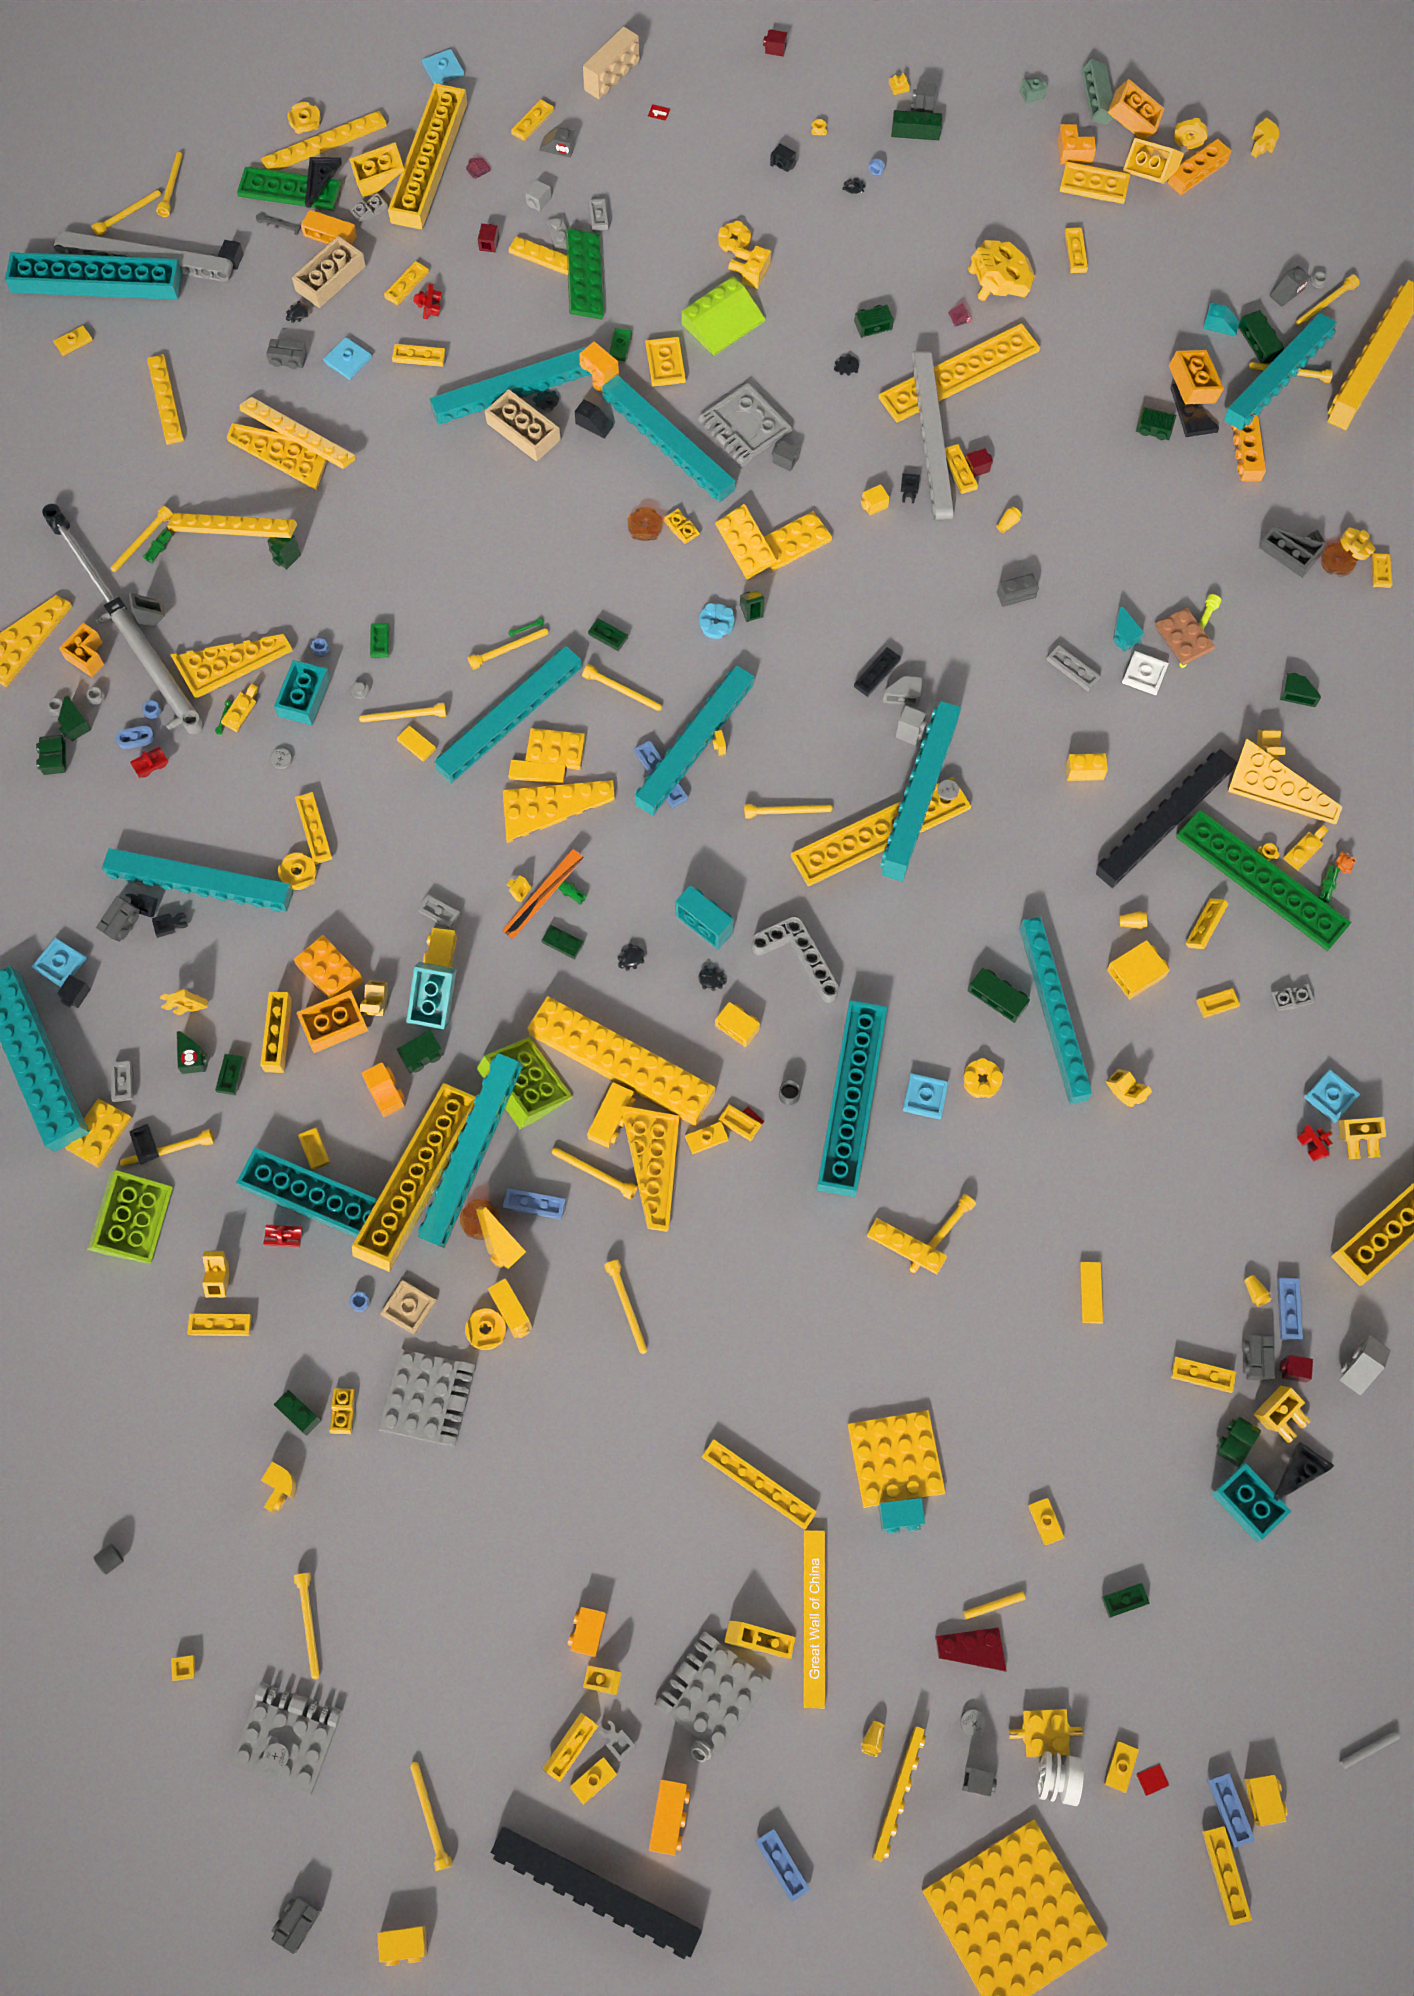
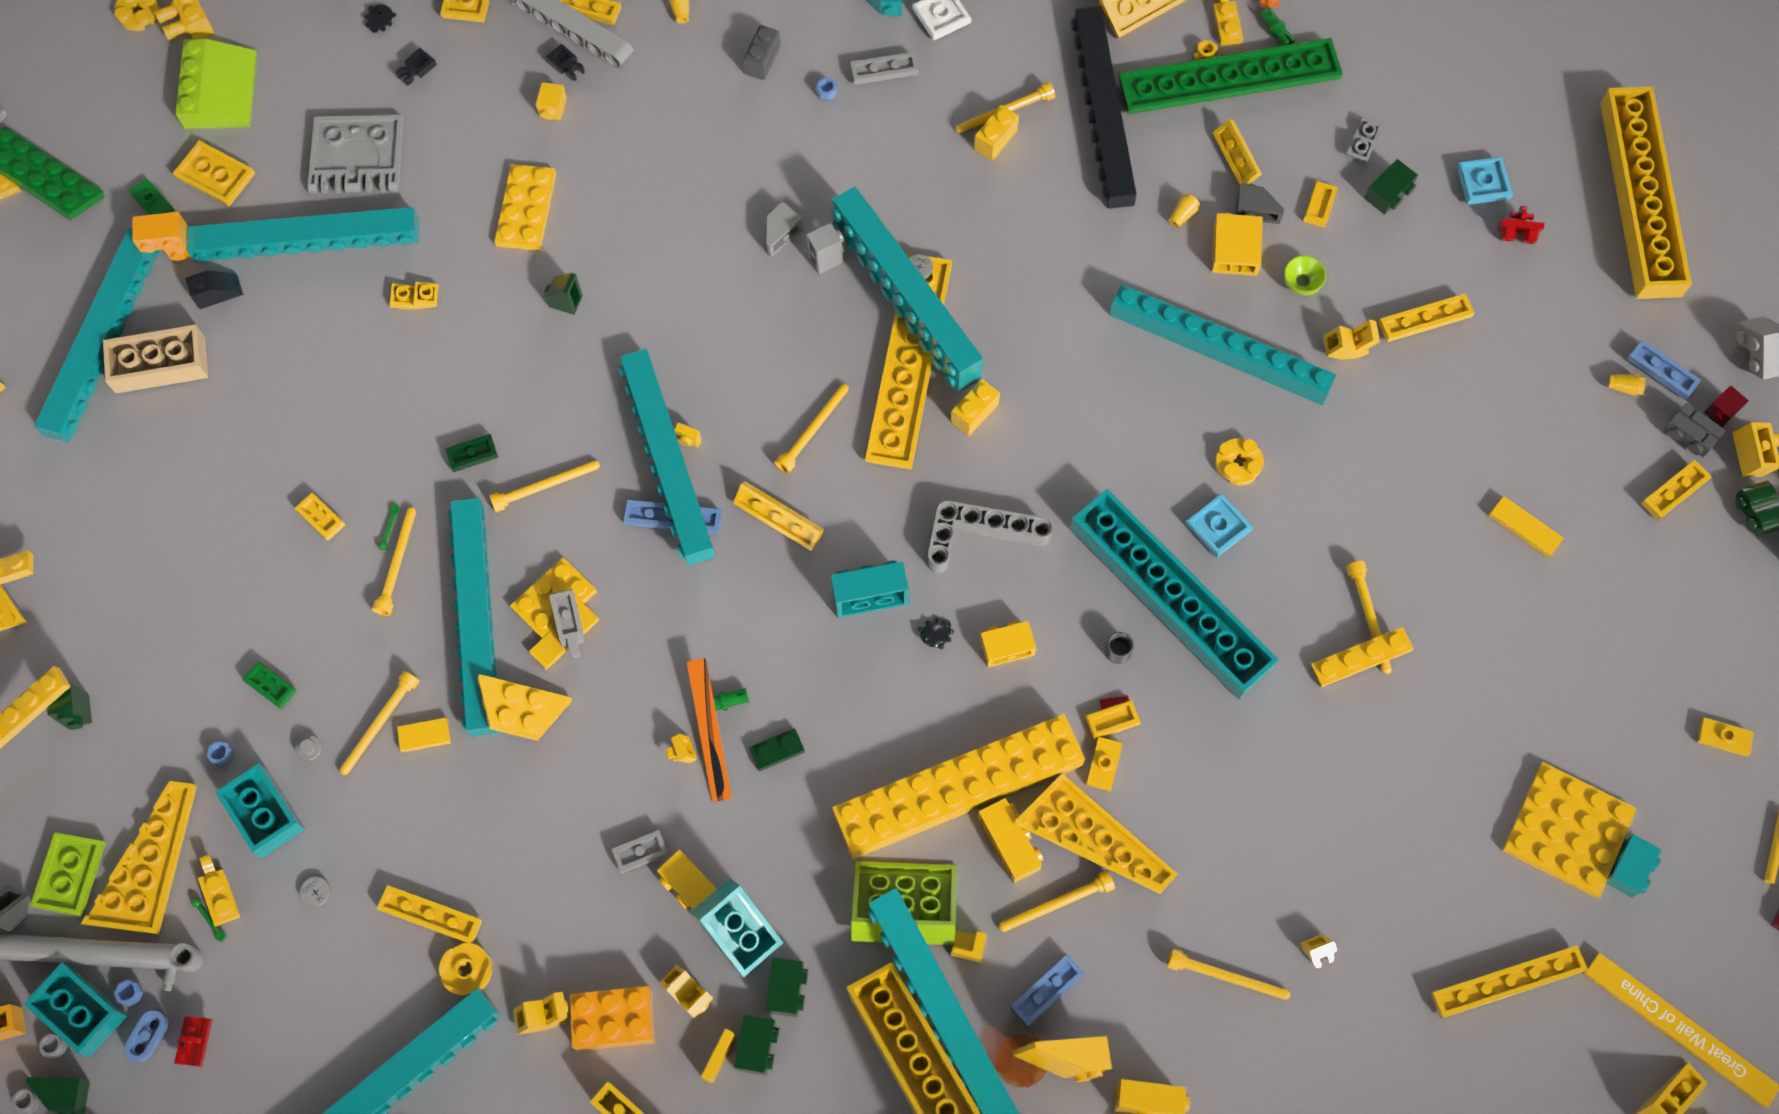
camera: 50 degrees left, 0 degrees up
(121, 690) = (75, 1010): none -> teal brick
(192, 626) = (68, 874): none -> lime plate
(301, 930) = (541, 1014): none -> yellow brick
(332, 1021) = (677, 1057): light orange brick -> none
(351, 1045) = (719, 1056): none -> yellow tile
(372, 1056) = (755, 1045): none -> dark green brick
(381, 1085) = (800, 1059): light orange brick -> none
(471, 780) = (520, 708): none -> yellow wing
(501, 586) = (319, 516): none -> yellow plate
(527, 1139) = (969, 946): none -> yellow panel
(544, 765) = (567, 621): none -> light grey hinge
(546, 400) = (146, 316): black piece -> none
(546, 805) = (611, 653): yellow wing -> none
(631, 957) = (849, 694): black piece -> none
(648, 532) = (383, 338): clear orange plate -> none
(687, 1348) = (1319, 947): none -> tile
(710, 832) = (778, 516): none -> yellow plate
(720, 612) = (548, 328): medium azure plate -> none
(746, 542) = (488, 248): yellow plate -> none
(785, 455) = (426, 143): dark grey brick -> none
(833, 410) = (416, 64): none -> black plate
(877, 671) = (737, 237): black plate -> none
(880, 892) = (975, 407): none -> yellow brick
(999, 994) = (1167, 382): dark green brick -> none
(1027, 646) = (826, 88): none -> medium blue tile
(1143, 775) = (1045, 93): none -> yellow piece
(1157, 1021) = (1305, 267): none -> lime piece
(1179, 960) = (1257, 201): none -> dark grey slope
(1191, 1126) = (1426, 317): none -> yellow plate
(1270, 1038) = (1391, 186): none -> dark green brick
(1368, 1129) = (1538, 179): yellow brick -> none

